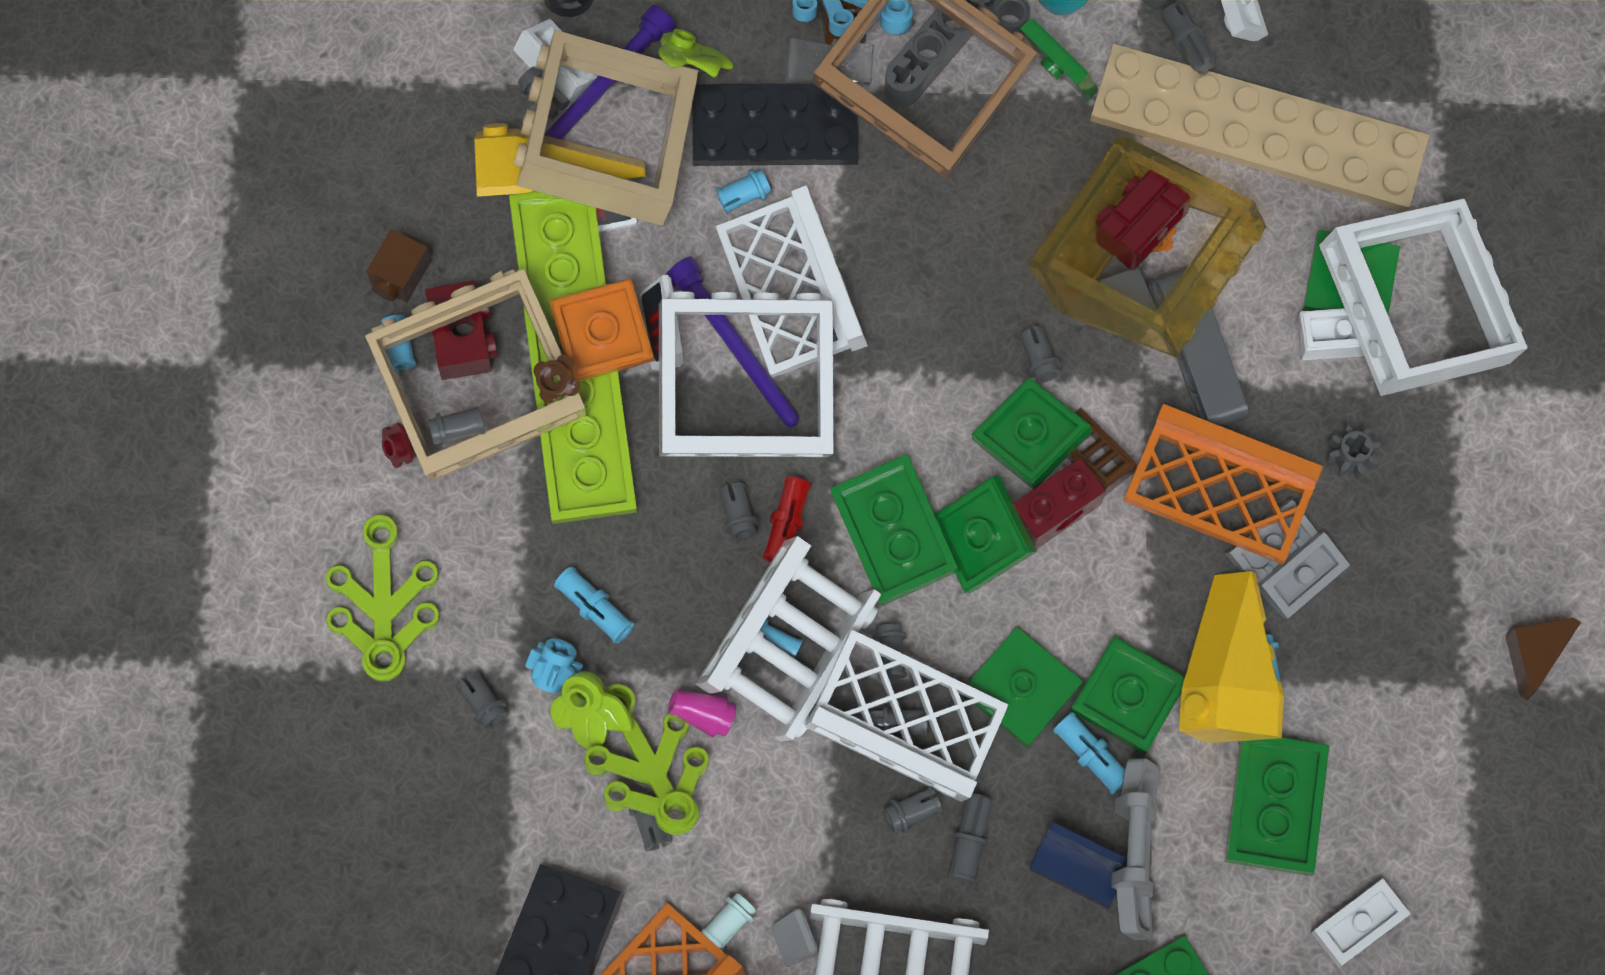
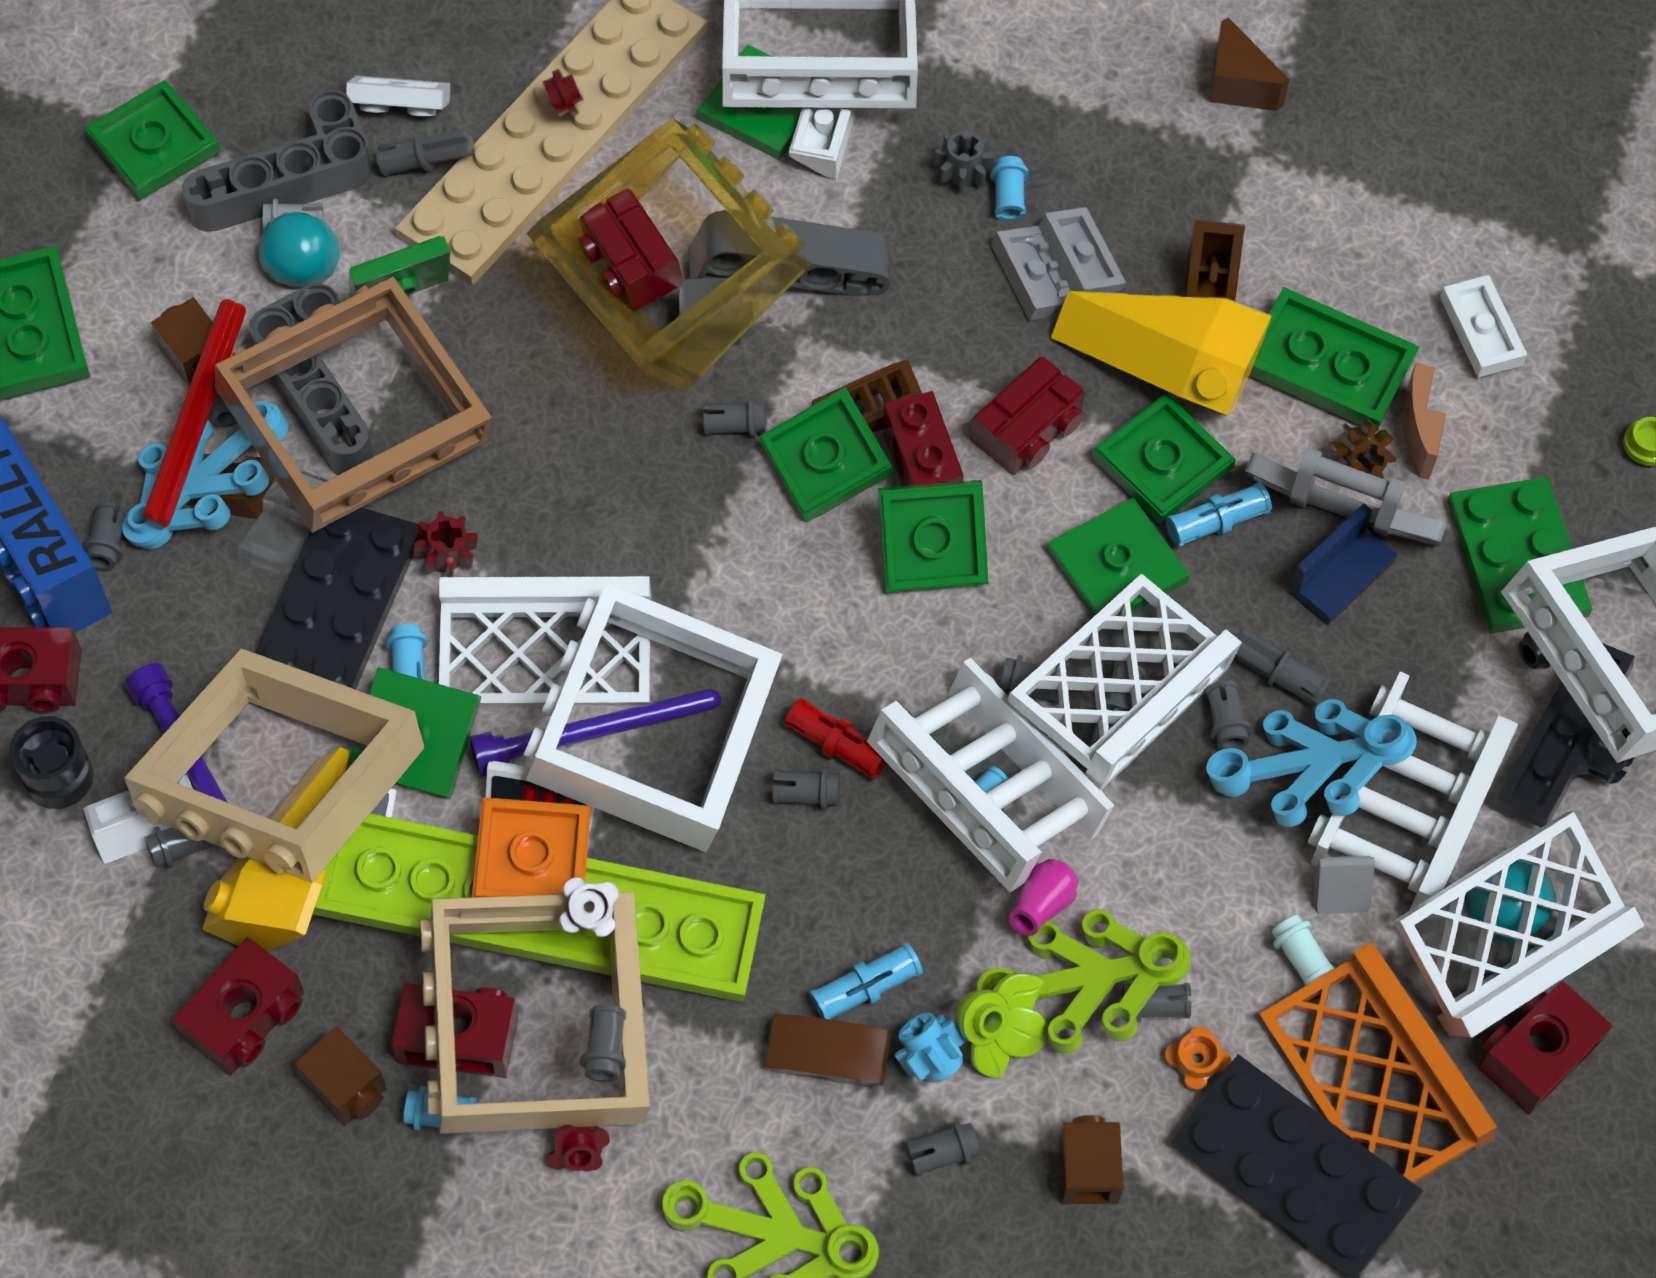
camera: 70 degrees left, 10 degrees down
(414, 162) = (244, 977): none -> dark red brick
(504, 808) = (1091, 1161): none -> reddish brown brick
(530, 594) = (828, 1049): none -> reddish brown slope
(614, 854) = (1199, 1042): none -> orange plate
(681, 49) = (198, 666): lime plate -> none
(692, 223) = (445, 726): none -> green plate
(847, 170) = (431, 546): none -> dark red gear
(887, 886) = (1376, 743): none -> medium azure plant
(894, 529) = (890, 626): green plate -> none
(1124, 577) = (1028, 416): none -> dark red brick
(1192, 852) = (1357, 440): none -> reddish brown gear
(1227, 449) = (921, 268): orange fence -> none
(1232, 898) = (1422, 425): none -> nougat slope
(1277, 119) = (563, 93): none -> dark red plate
(1320, 684) = (1214, 259): none -> reddish brown slope
(1343, 498) = (1009, 181): none -> medium azure pin

